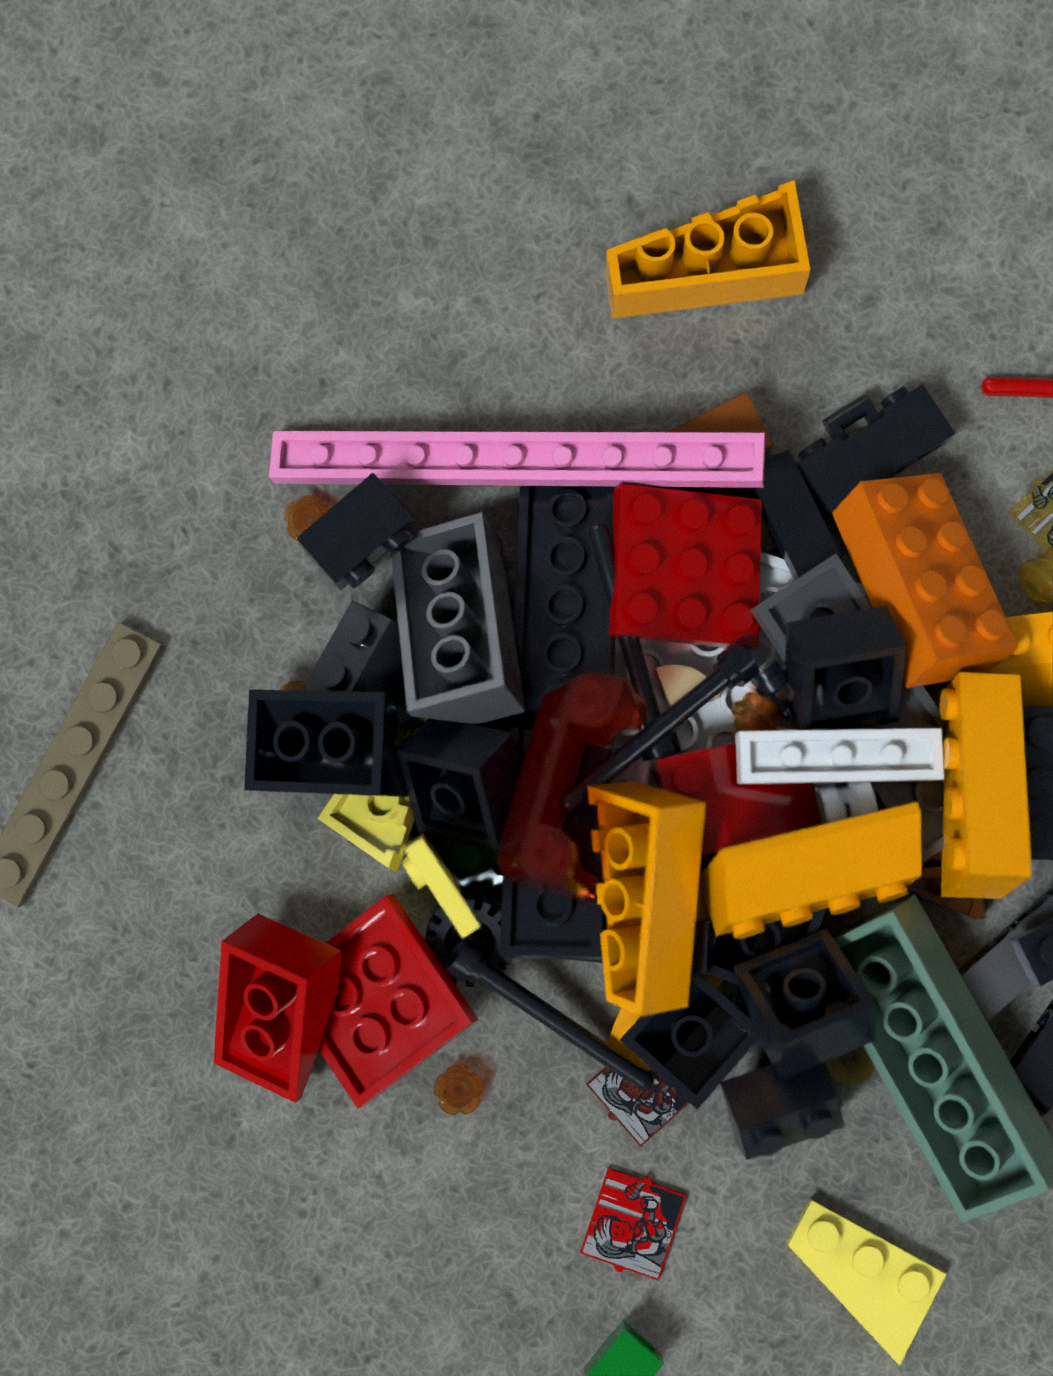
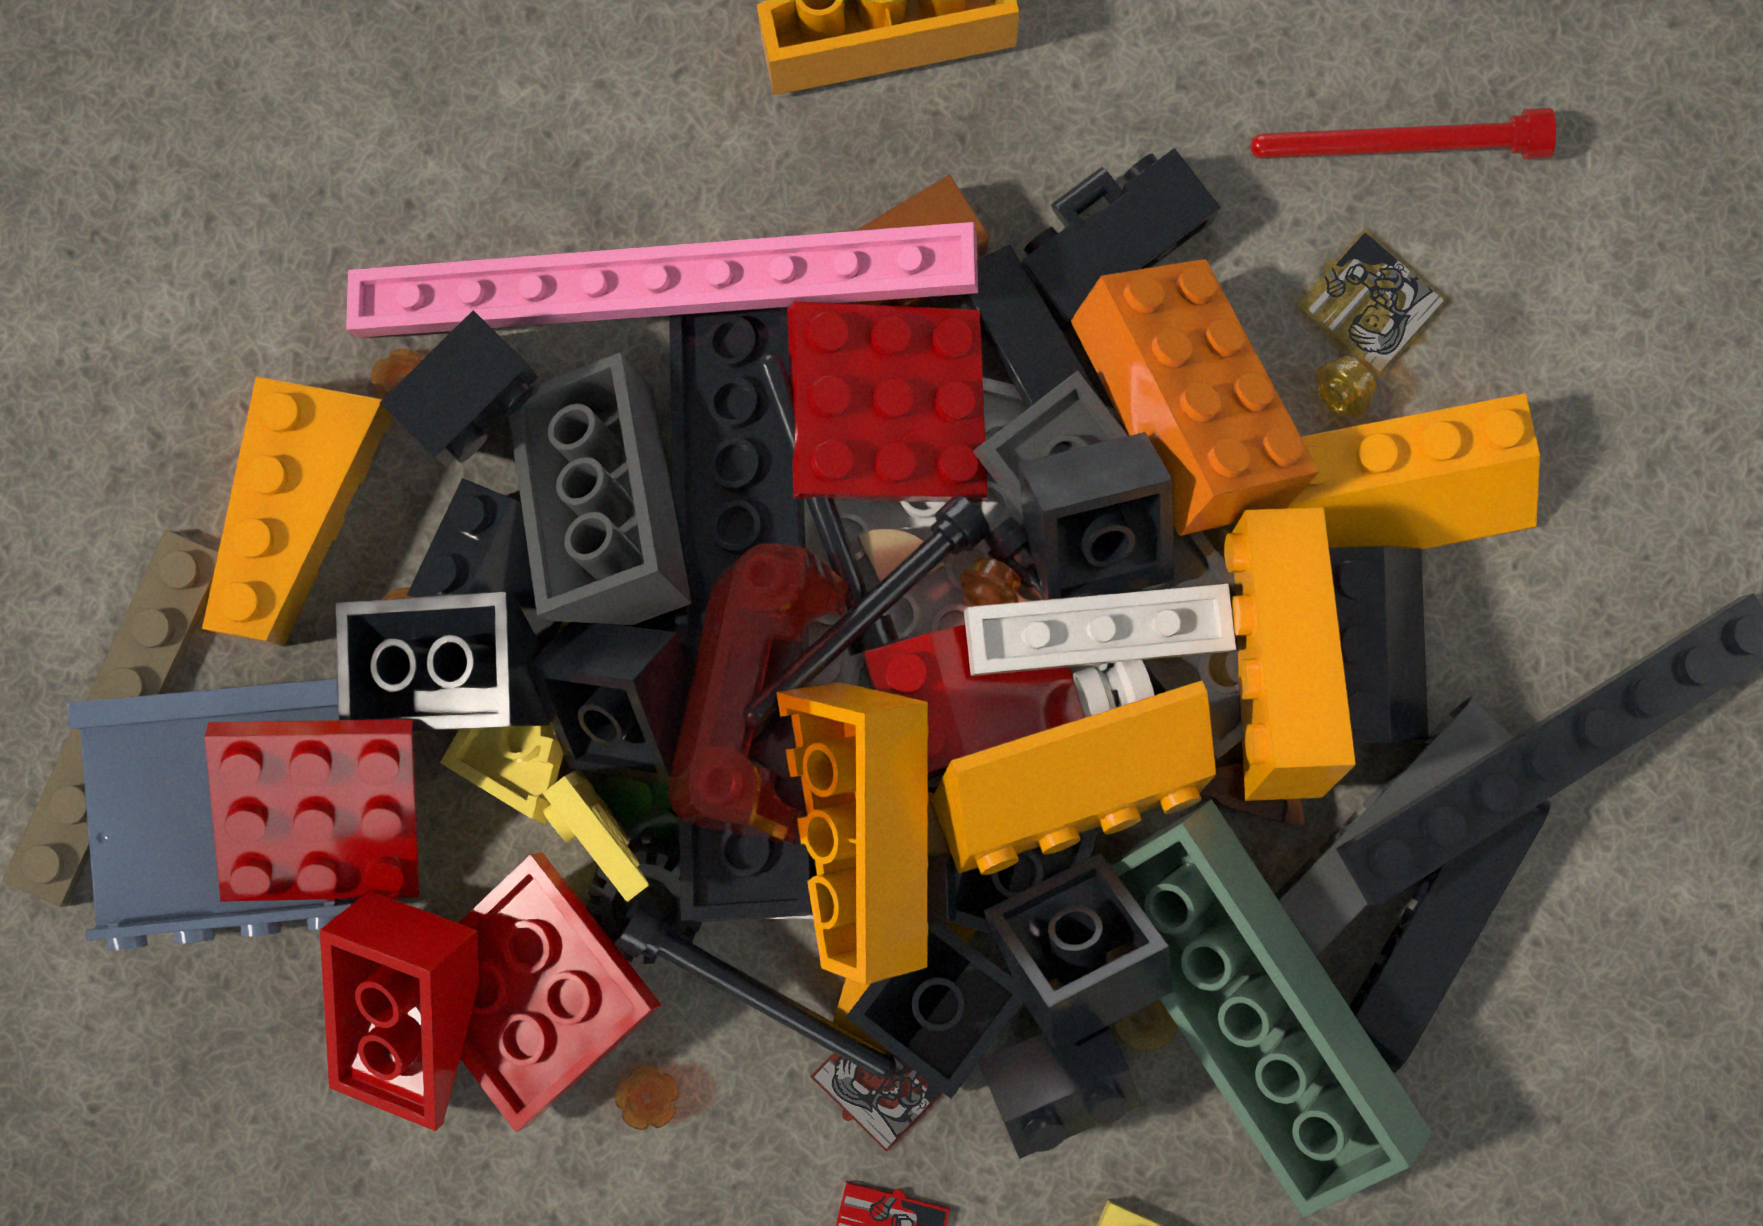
camera: 10 degrees left, 0 degrees up
(144, 843) = (155, 813): none -> sand blue panel
(218, 598) = (287, 503): none -> light orange wedge
(221, 847) = (313, 809): none -> red plate

